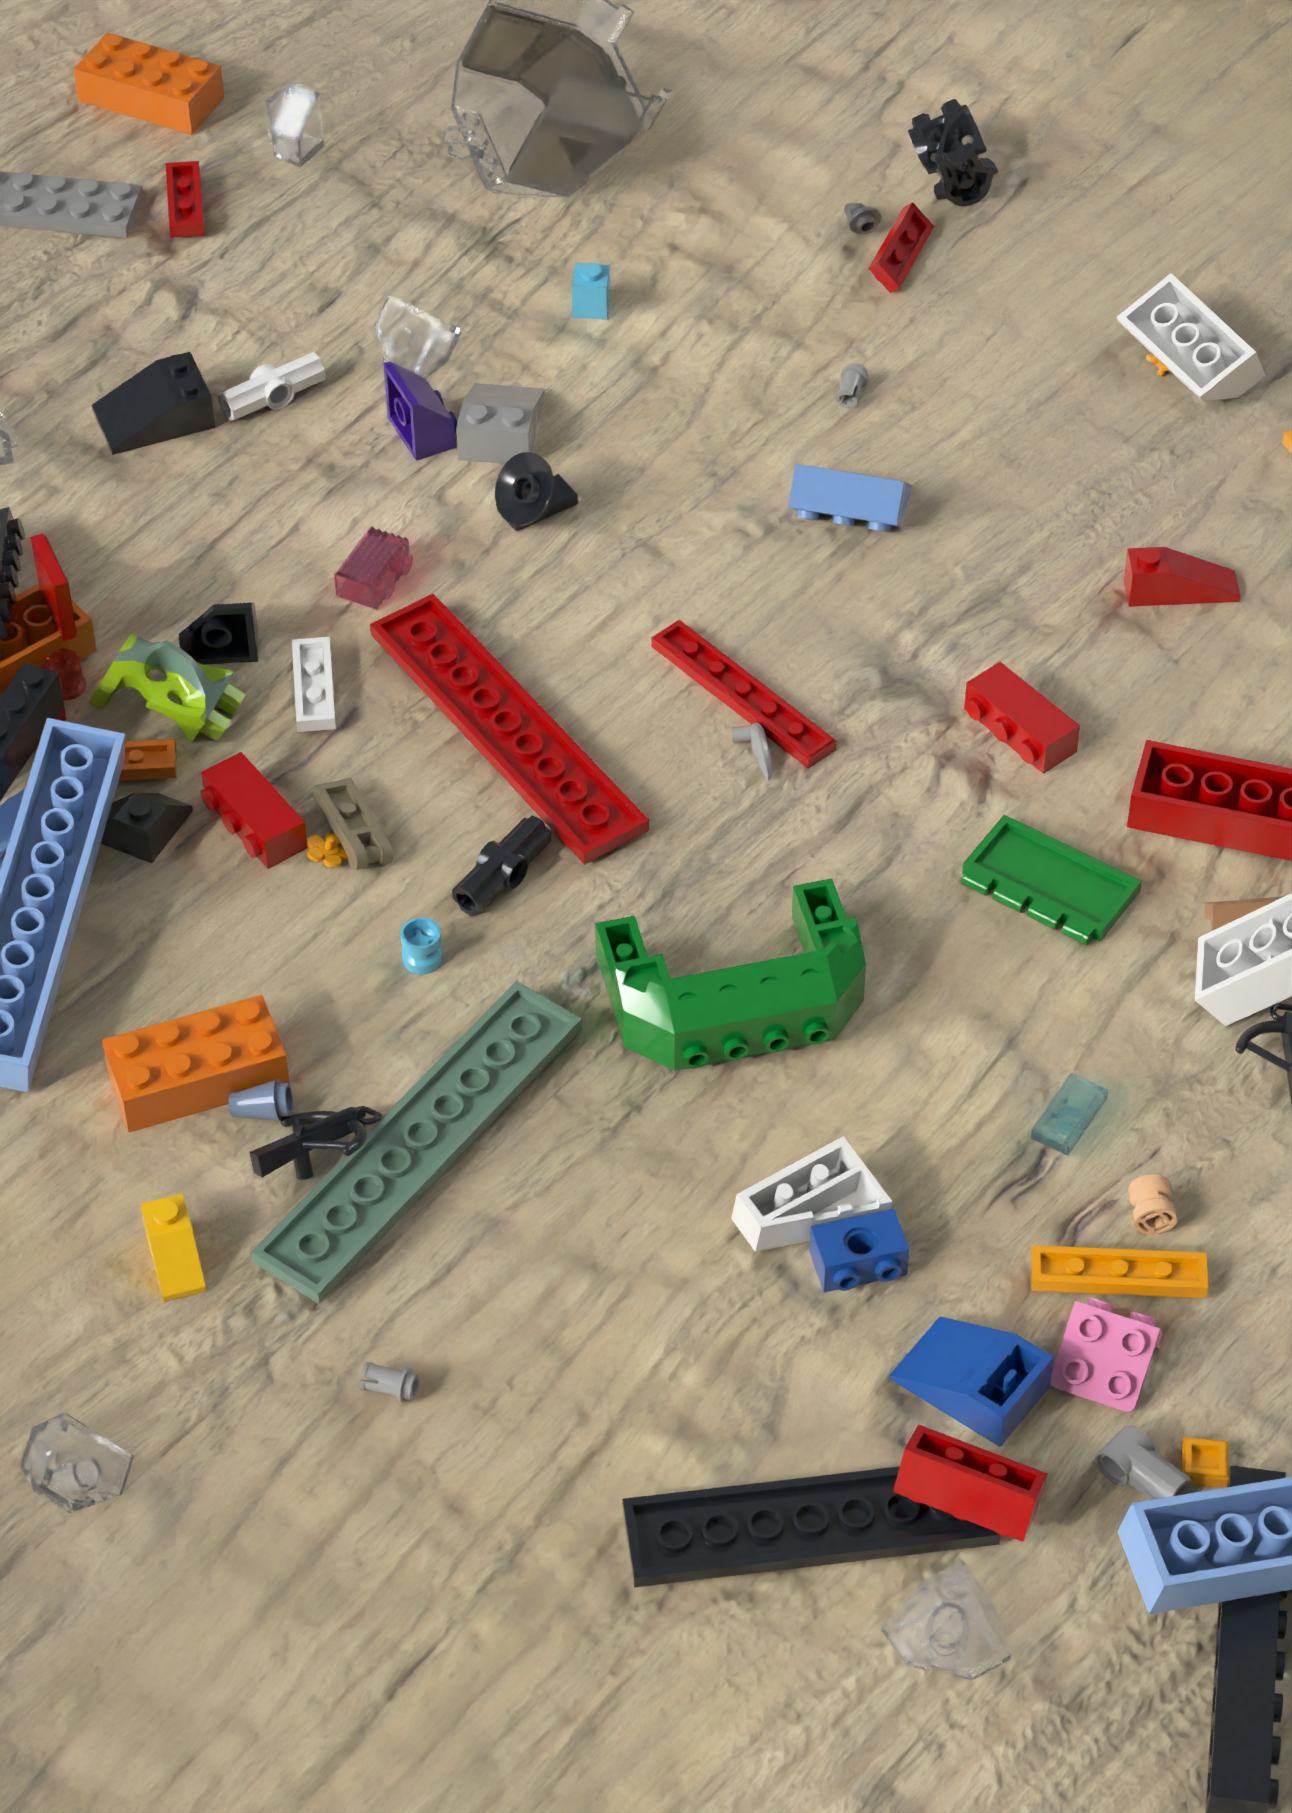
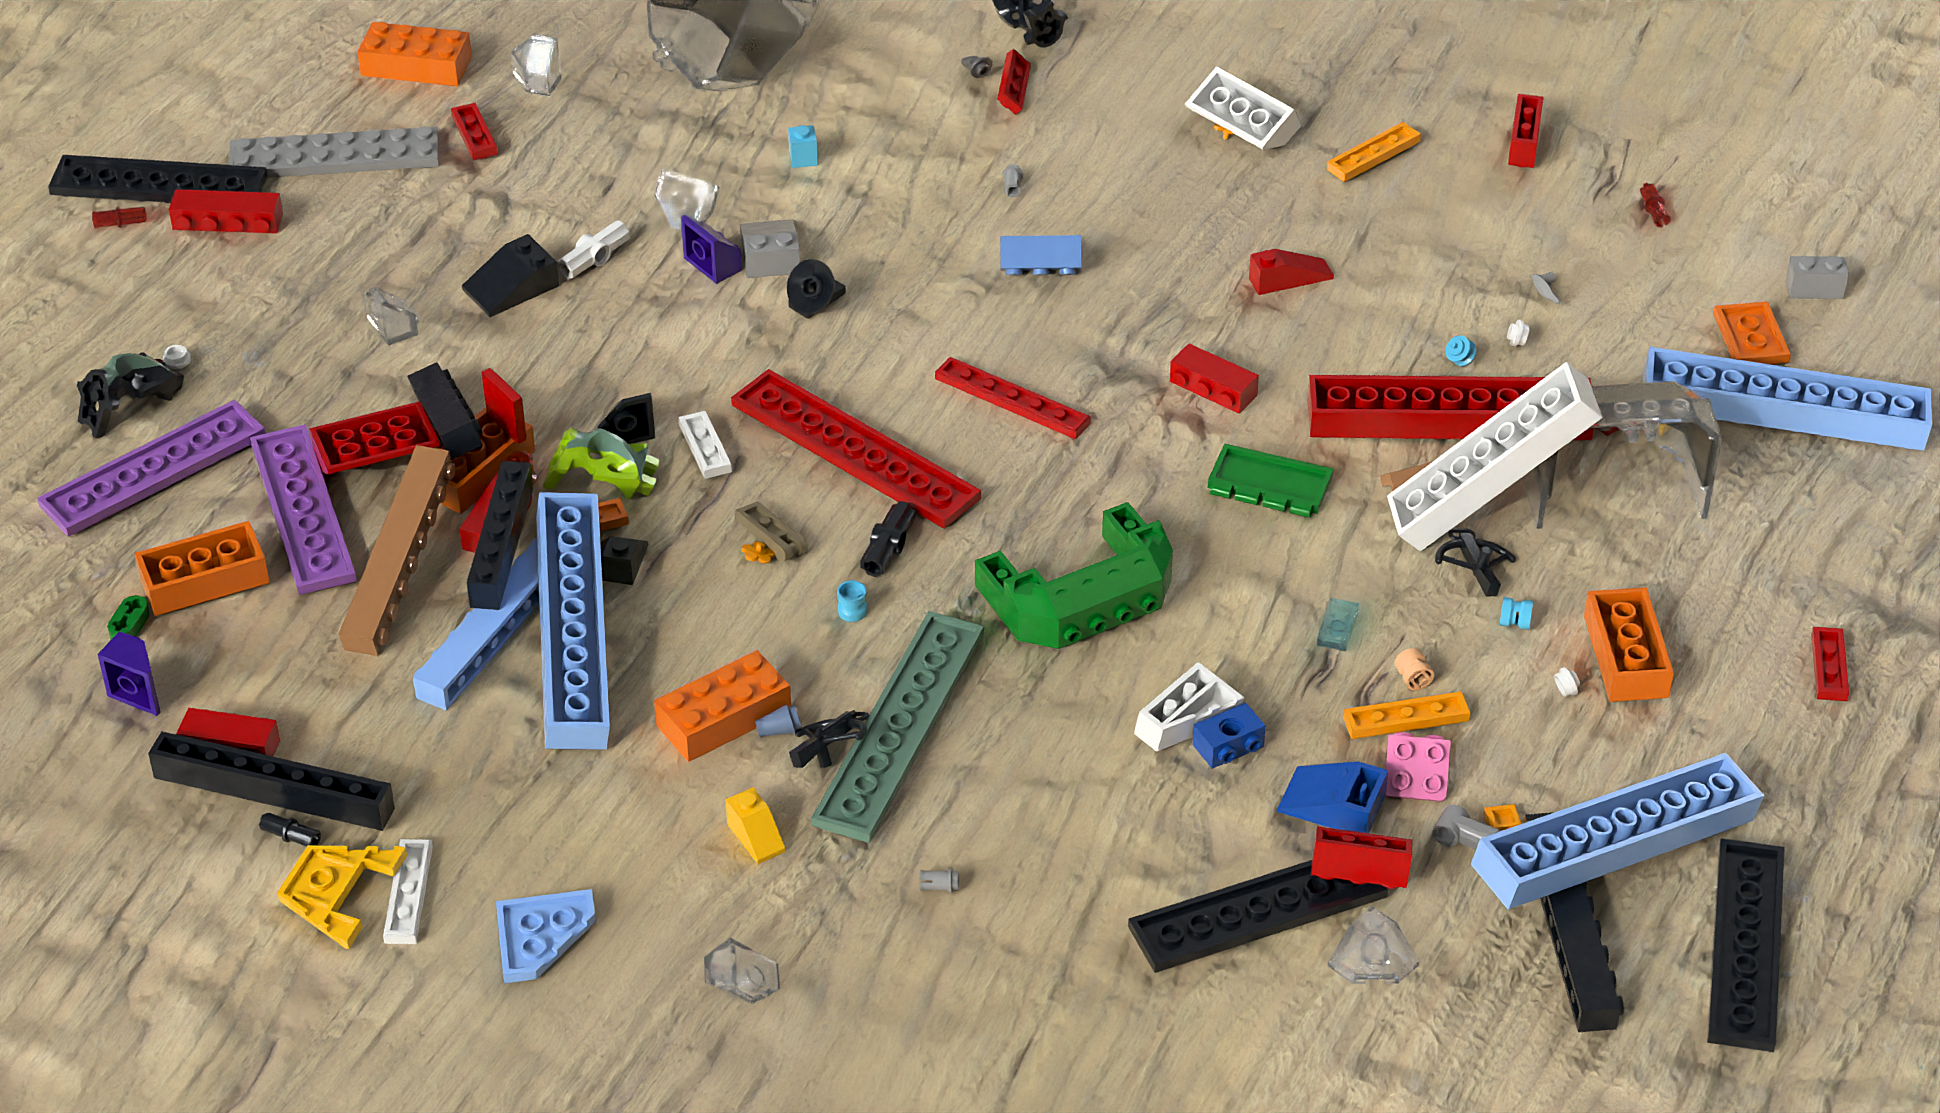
camera: 15 degrees left, 5 degrees down
(253, 810) = (696, 534): red brick -> none
(373, 568) = (718, 359): clear pink brick -> none
(755, 734) = (1037, 427): light grey bar -> none

